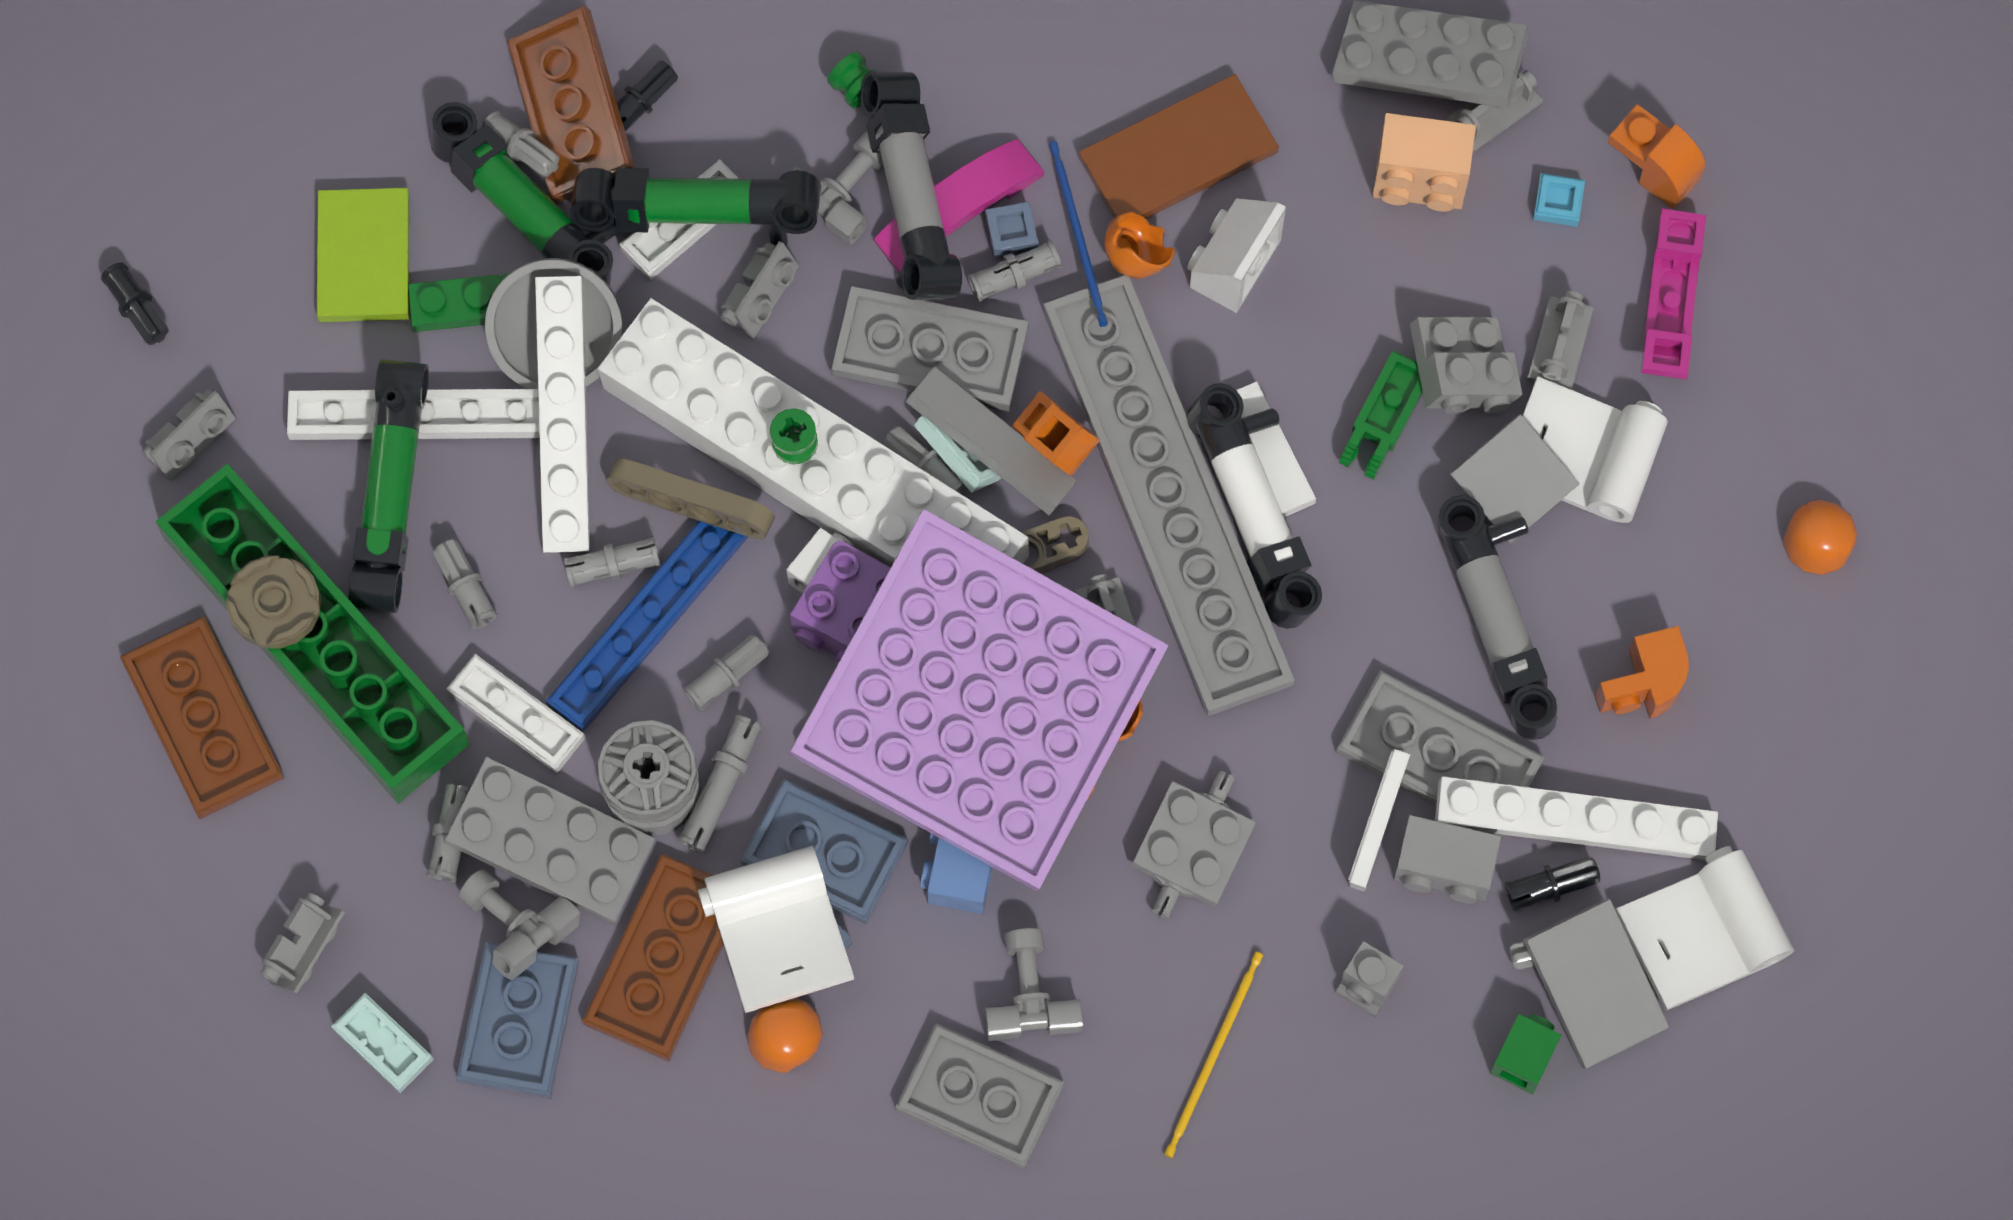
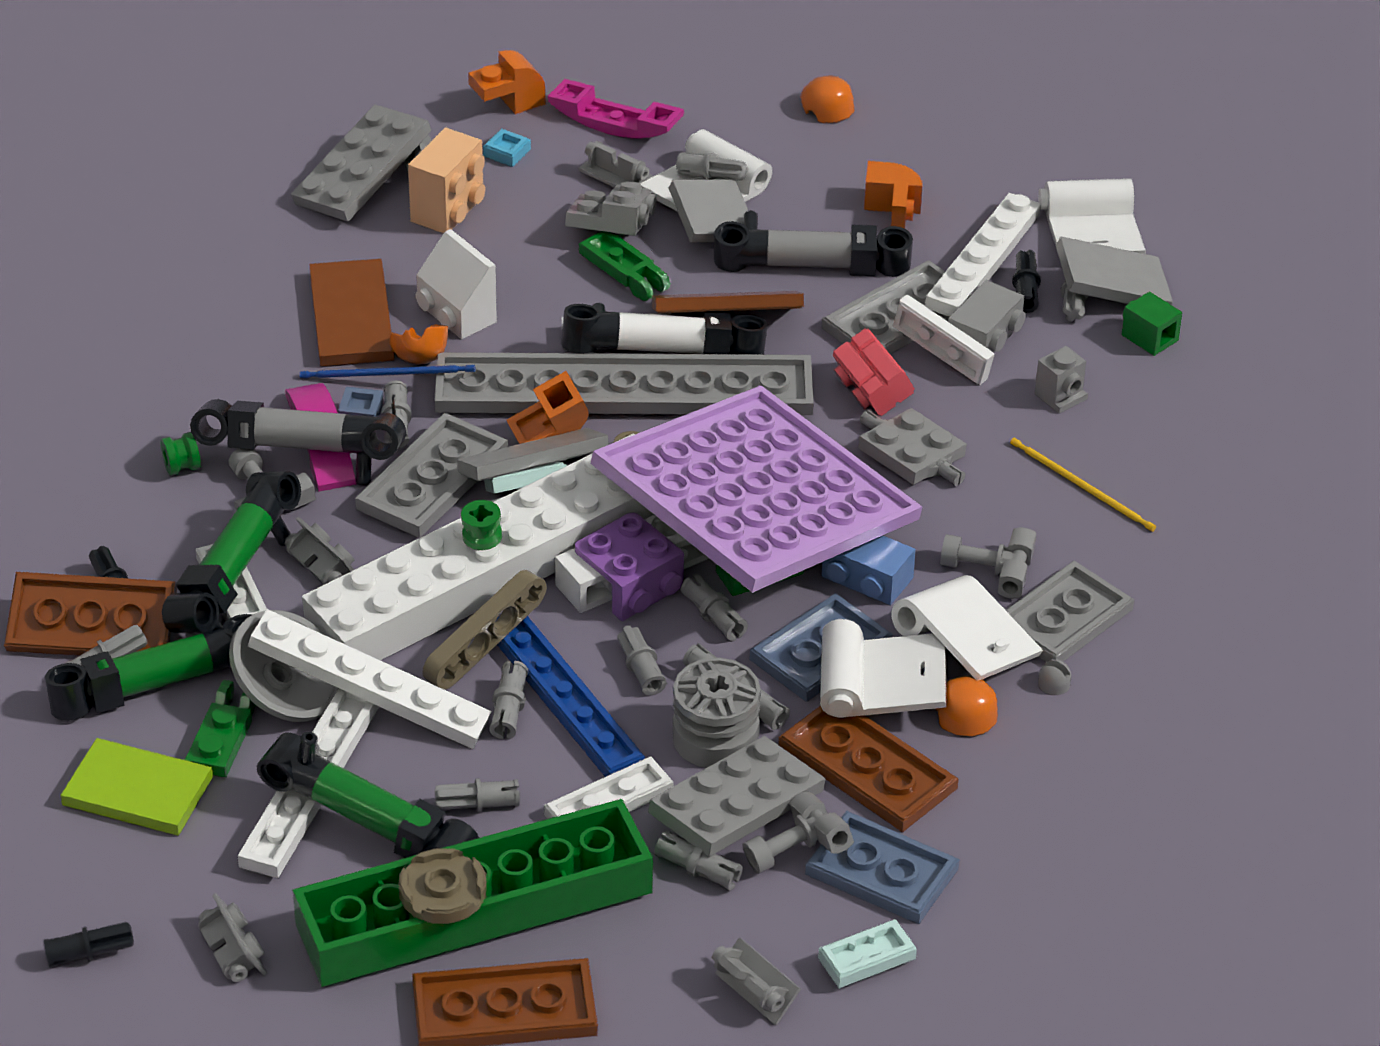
camera: 70 degrees left, 30 degrees down
(879, 1117) = (1054, 677): none -> light grey hinge
(889, 991) = (968, 625): none -> white door
(1288, 759) = (873, 372): none -> coral brick
(1346, 554) = (727, 301): none -> dark orange tile
(1592, 447) = (710, 166): none -> light grey axle

